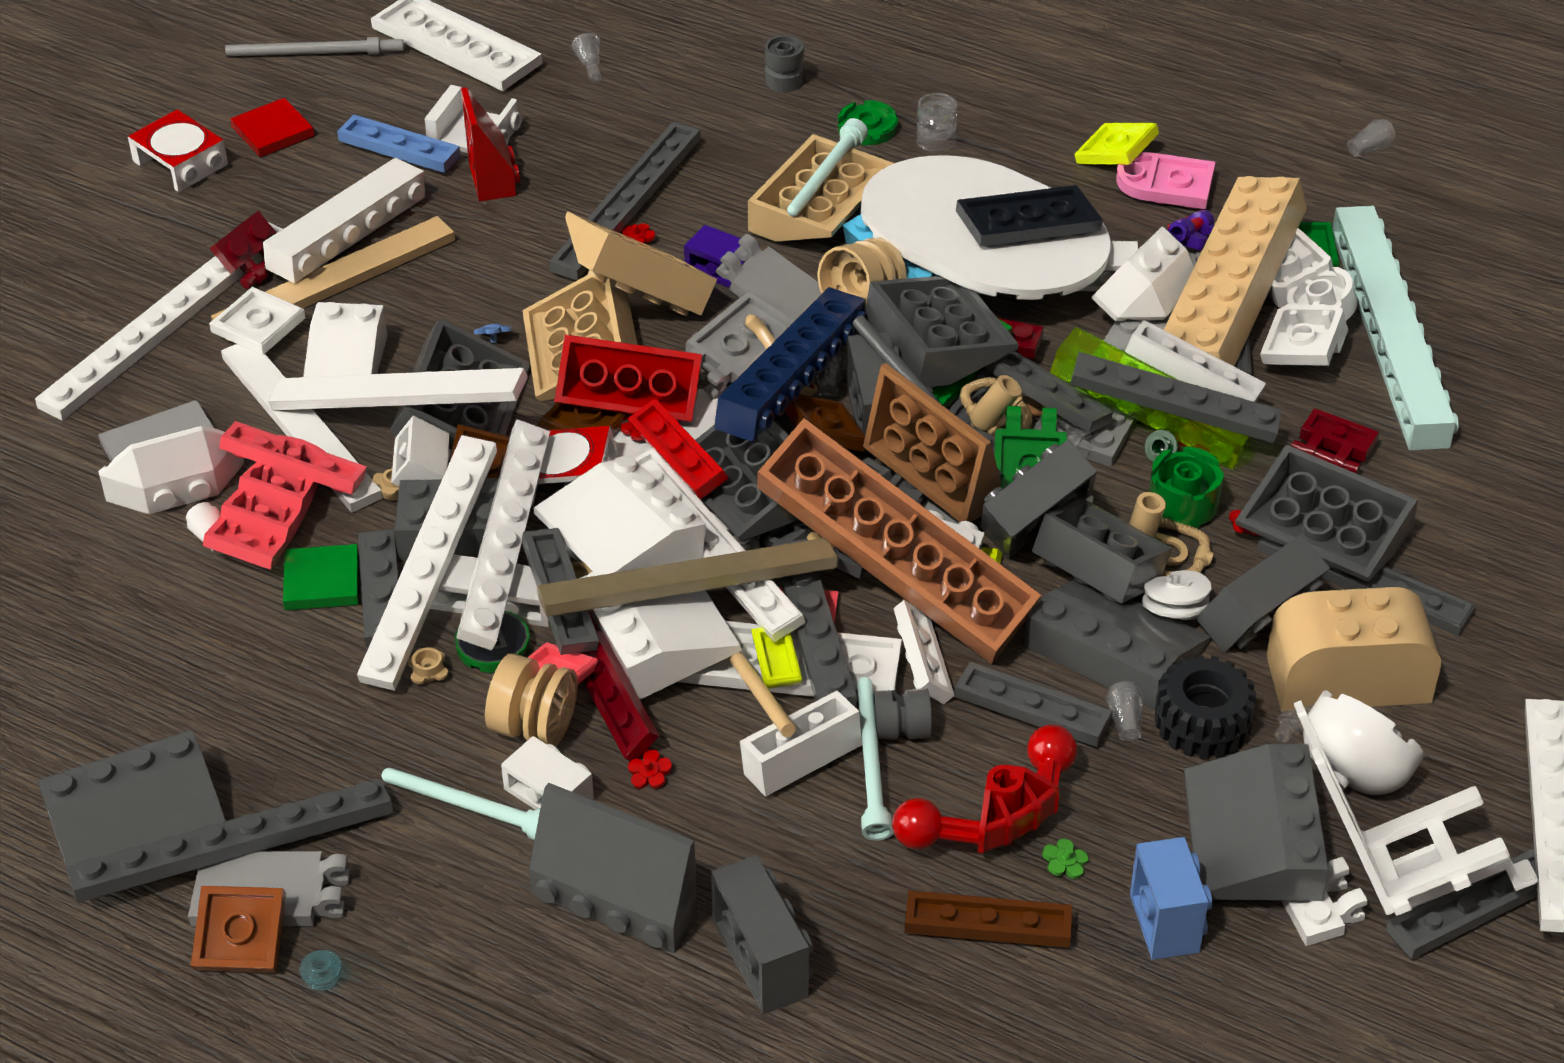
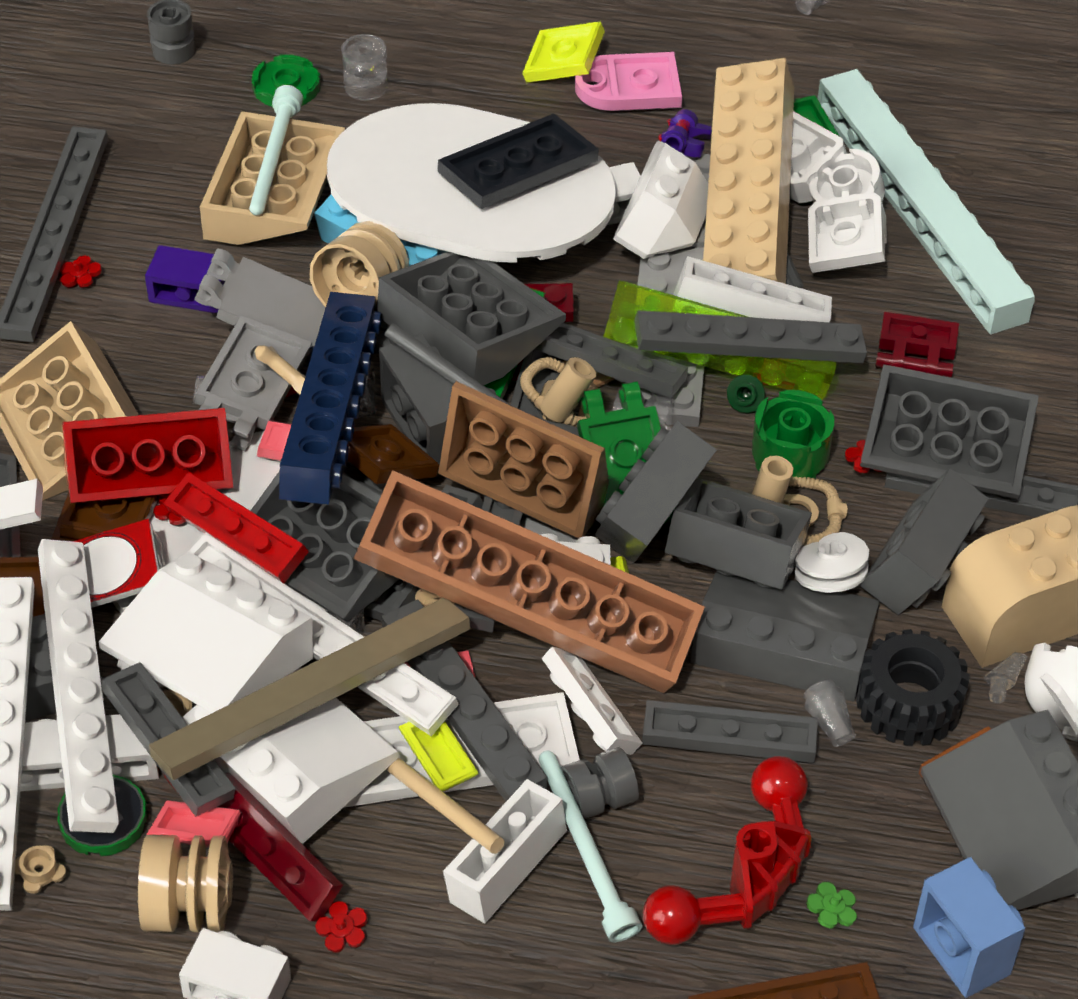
camera: 20 degrees left, 5 degrees up
(639, 267) = (107, 314): tan slope -> none

